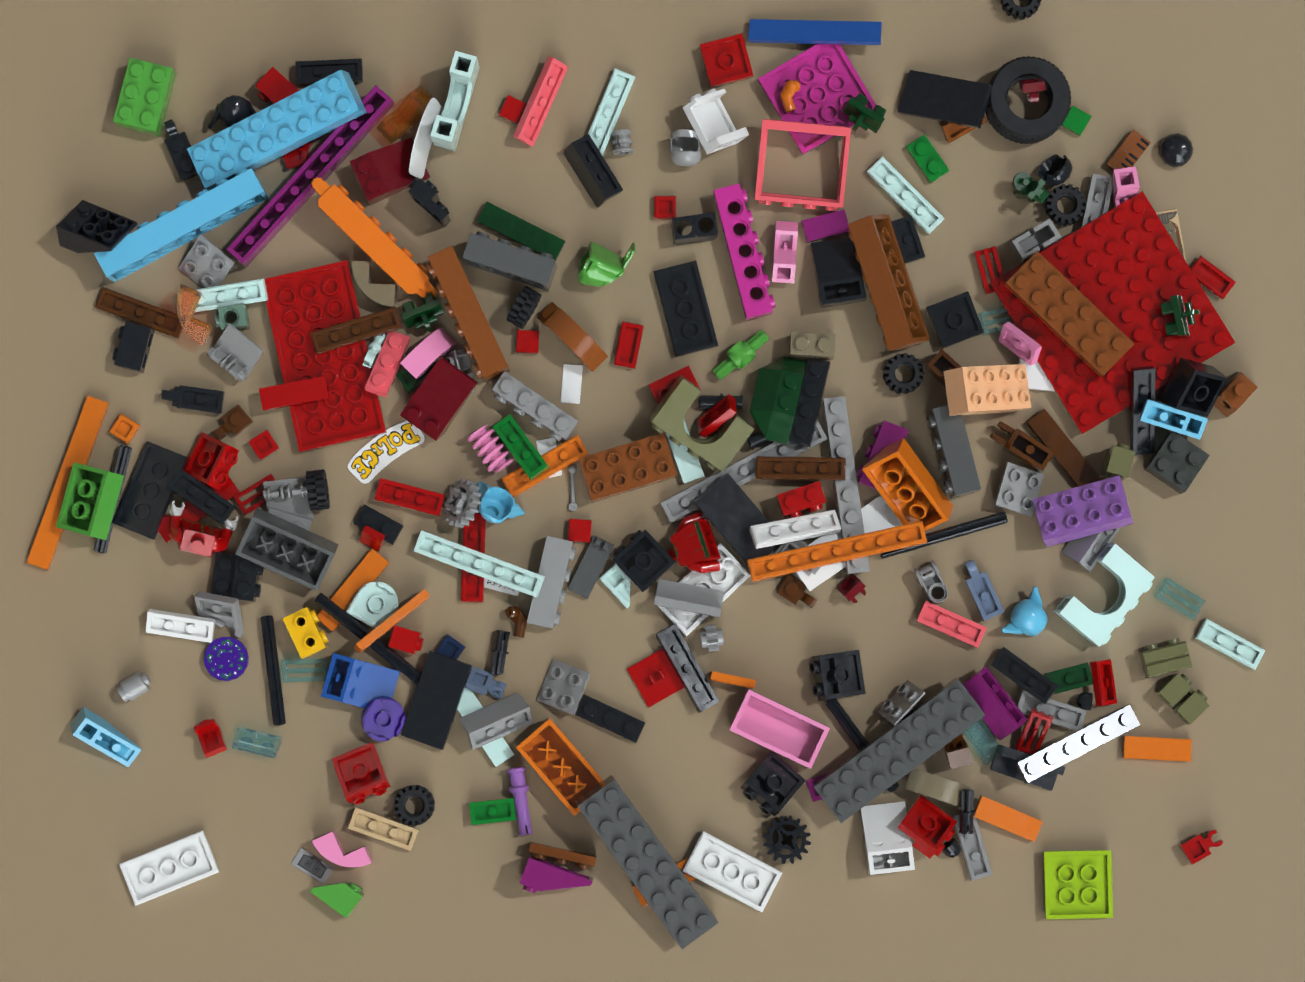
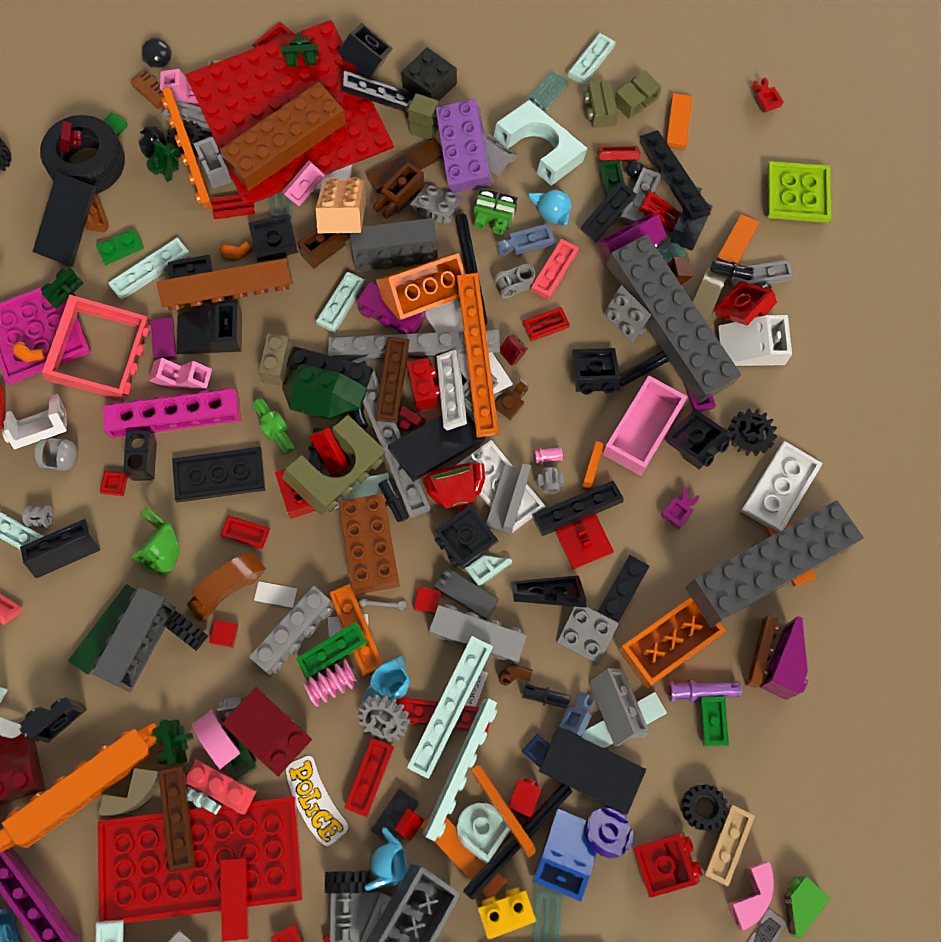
camera: 85 degrees left, 15 degrees down
(336, 523) = (388, 863): none -> medium azure piece
(433, 582) = (456, 778): none -> light aqua plate
(470, 317) = (180, 690): dark orange brick -> none
(599, 648) = (550, 591): none -> black wing
(673, 486) = (393, 500): none -> black axle
(694, 768) = (679, 510): none -> magenta plate
(740, 634) = (548, 455): none -> bright pink pin
(764, 492) = (410, 419): none -> dark red tile
(879, 603) = (548, 331): none -> red tile
(889, 402) = (340, 302): none -> light aqua tile
(896, 385) = (312, 275): black tyre -> none
(933, 281) = (233, 252): none -> orange arm
(1014, 542) = (494, 211): none -> bright green hips
(1052, 206) = (183, 141): none -> orange plate
(1176, 420) = (390, 69): medium azure slope -> none
(1234, 394) = (377, 22): dark orange torso -> none

